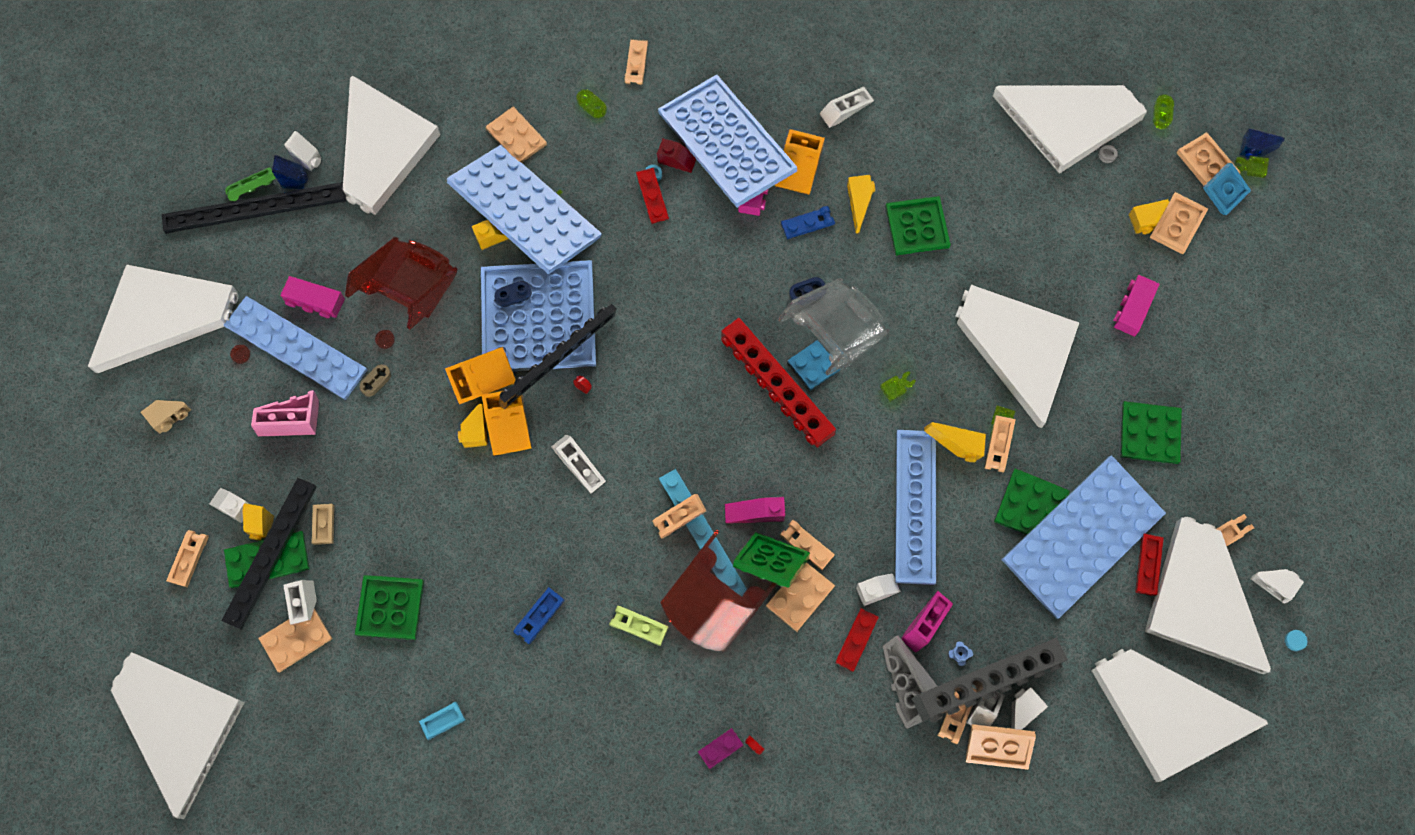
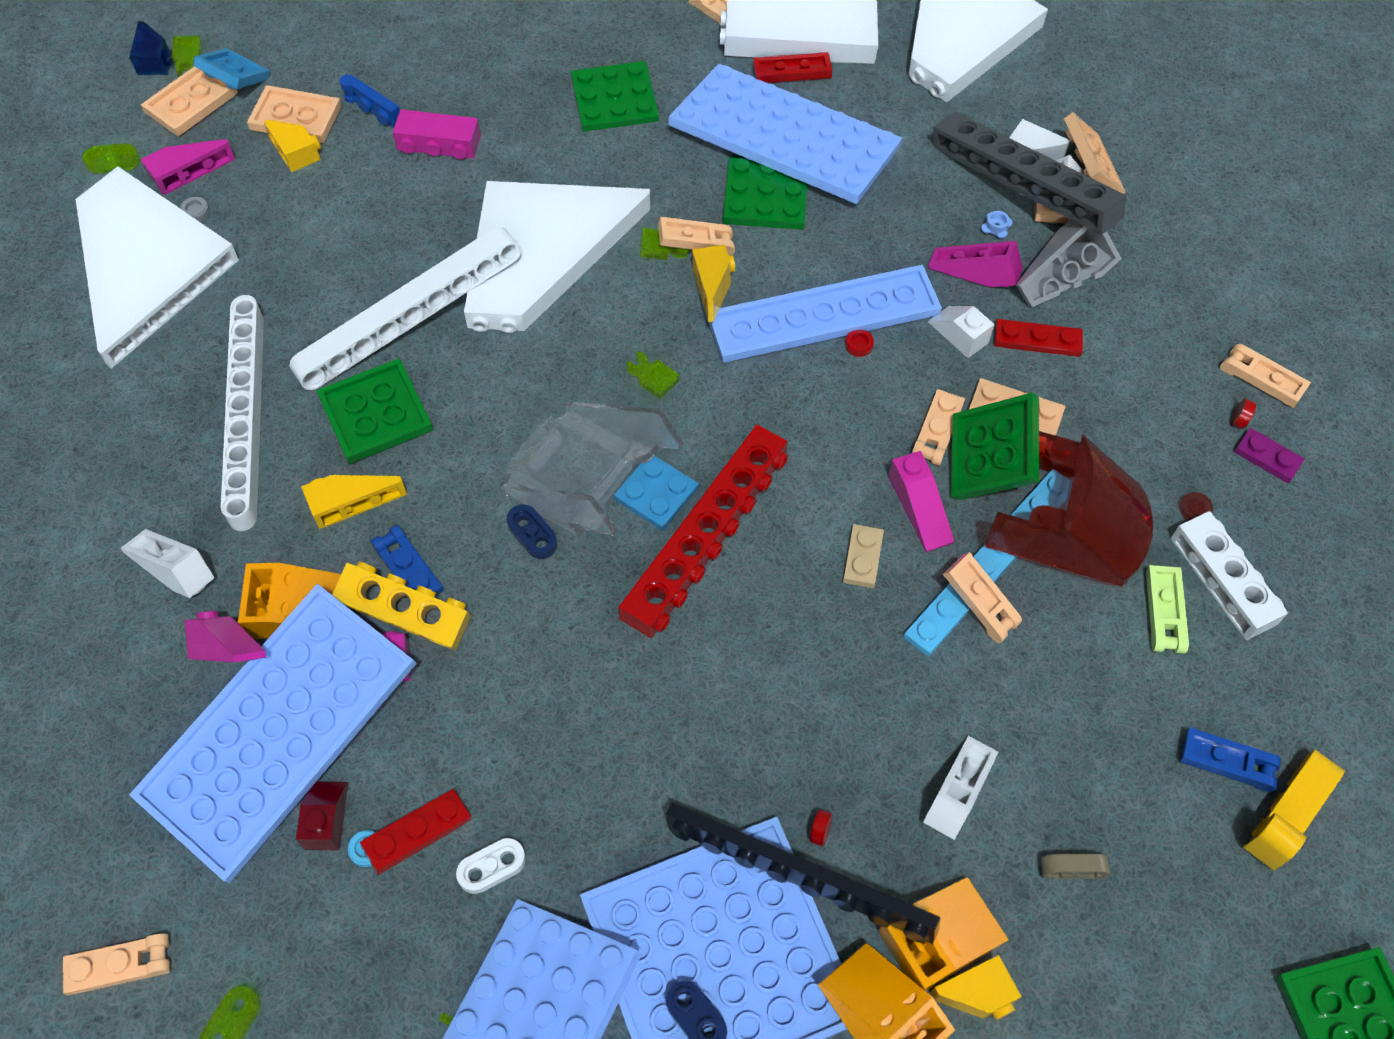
camera: 110 degrees left, 10 degrees down
(498, 633) = (1281, 832): none -> yellow beam
(514, 503) = (1075, 866): none -> dark tan beam
(614, 671) = (1230, 592): none -> white brick
(622, 226) = (490, 864): none -> white plate
(699, 680) = (1194, 505): none -> clear red tile
(733, 466) = (863, 556): none -> tan plate
(777, 202) = (352, 591): none -> yellow brick
(779, 778) = (1265, 374): none -> light nougat plate
(781, 120) = (219, 639): none -> dark pink slope
(886, 521) = (859, 343): none -> red tile
(947, 155) = (242, 414): none -> white beam
(984, 254) = (404, 308): none -> white beam
(1144, 145) = (184, 163): none -> dark pink slope
(1178, 269) = (369, 100): none -> blue plate

